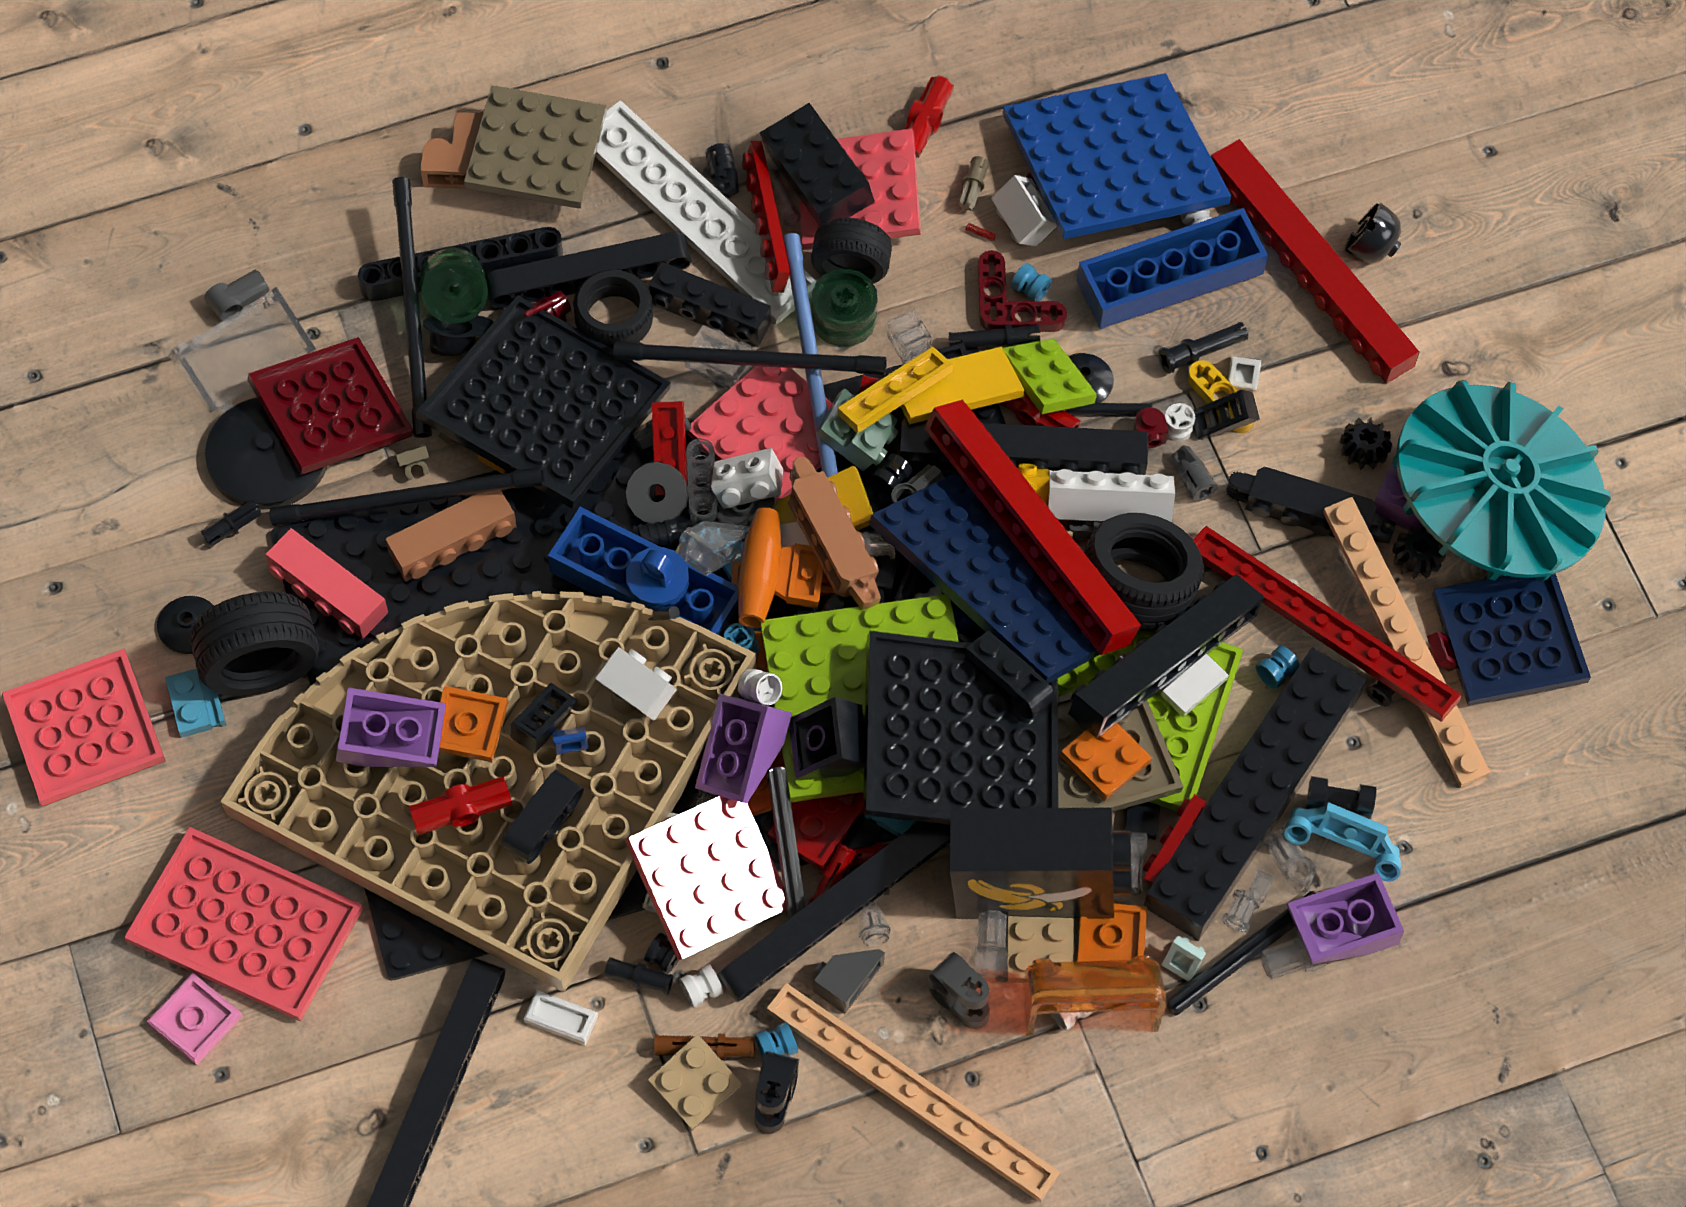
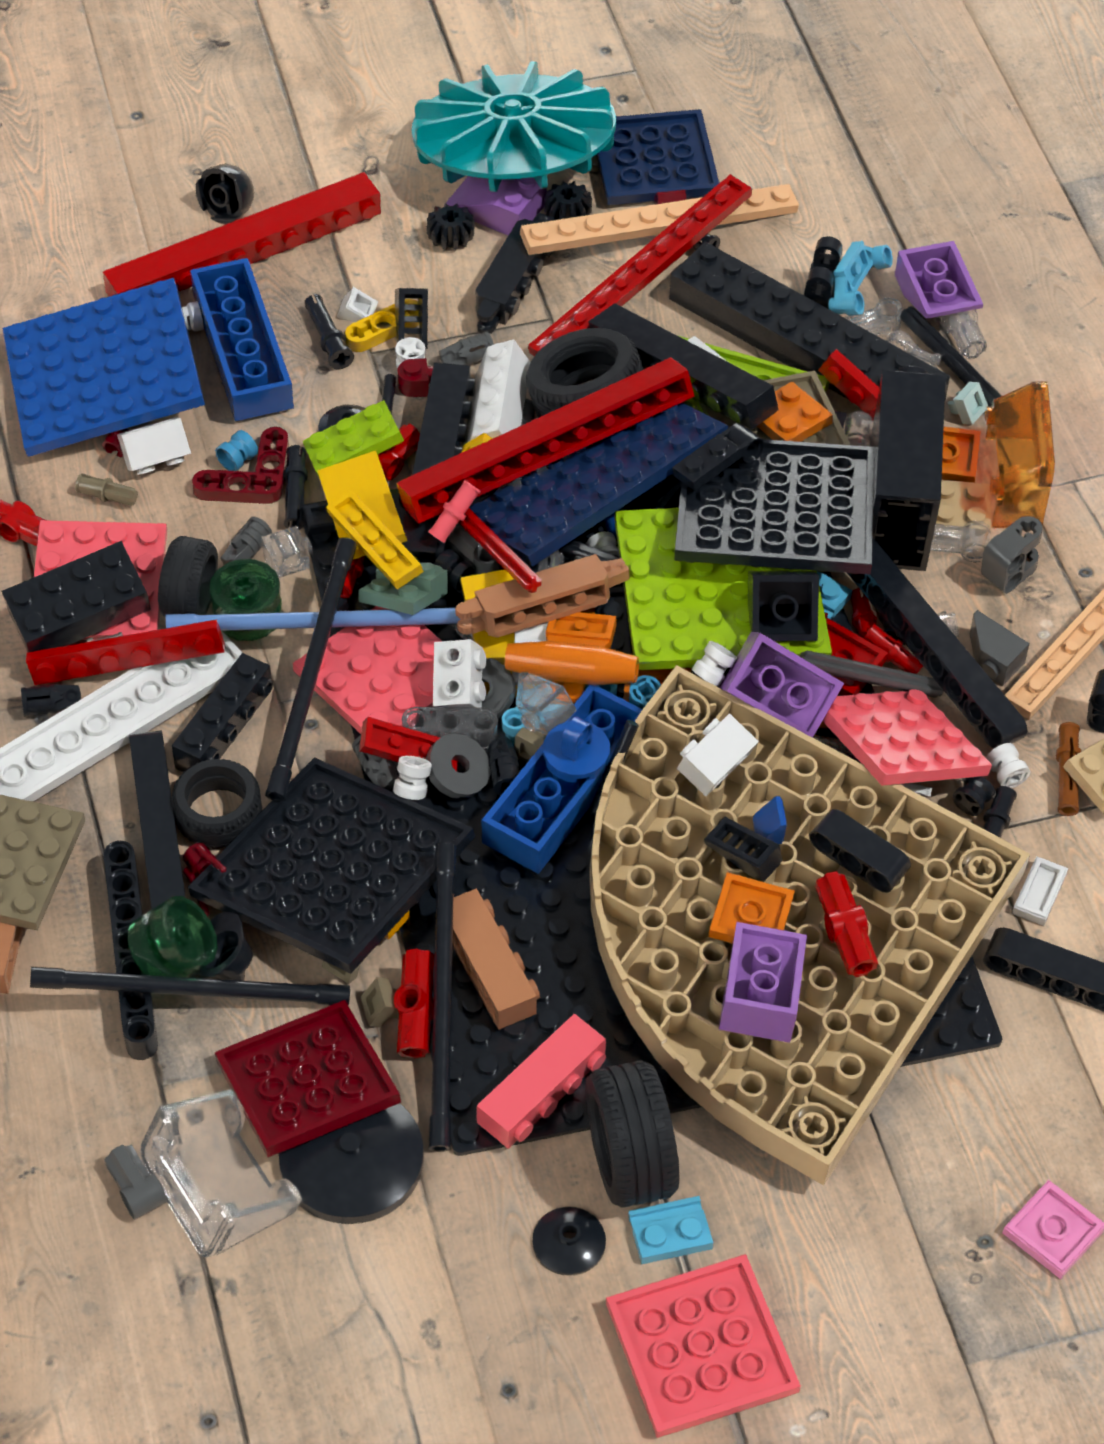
camera: 85 degrees left, 10 degrees down
(231, 523) = (446, 1190): black axle -> none
(244, 923) = (944, 1177): coral plate -> none
(402, 476) = (415, 1003): none -> red piece
(634, 452) = (412, 777): none -> white wheel
(722, 374) = (273, 716): clear brick -> none
(781, 1037) = (1064, 707): dark azure wheel -> none
(884, 489) = (500, 552): none -> red axle
(927, 306) = (247, 540): none -> dark grey hinge
(934, 453) = (454, 511): none -> coral pin
(976, 231) = (164, 492): red leg -> none
(1277, 667) = (682, 313): dark azure wheel -> none

